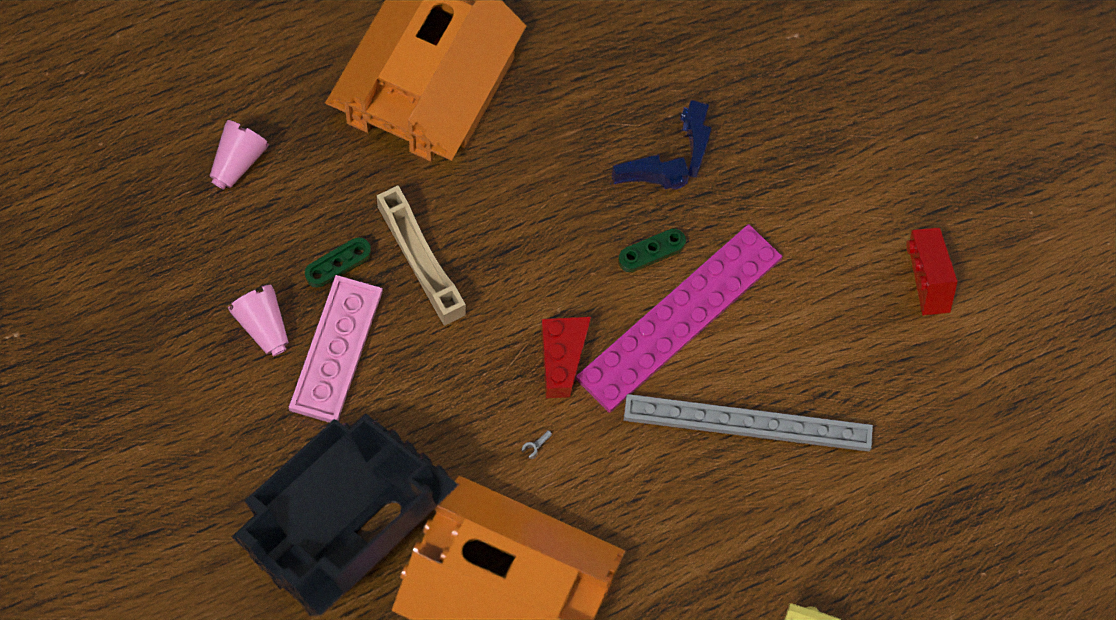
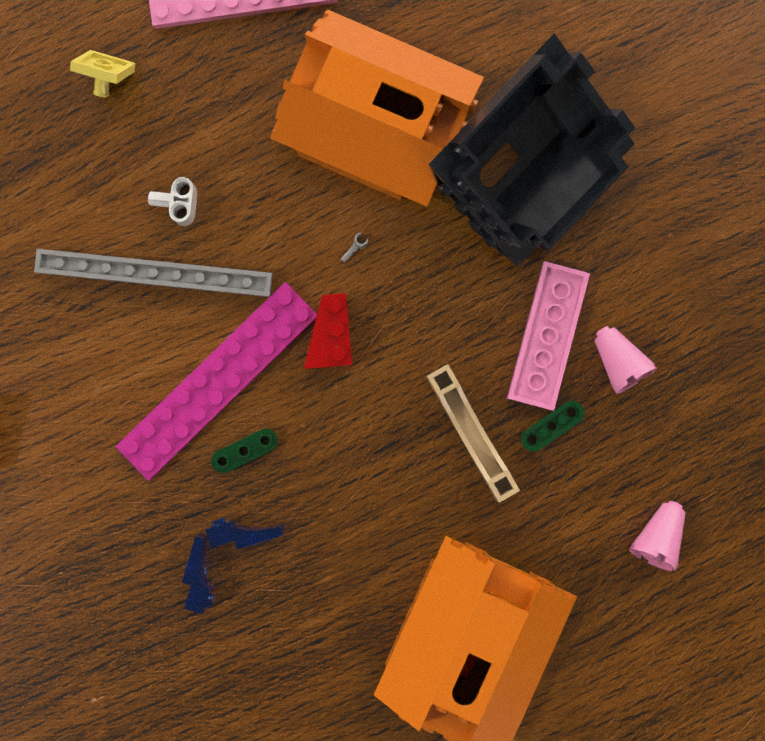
camera: 175 degrees left, 20 degrees up
(725, 494) = (176, 201): none -> white beam

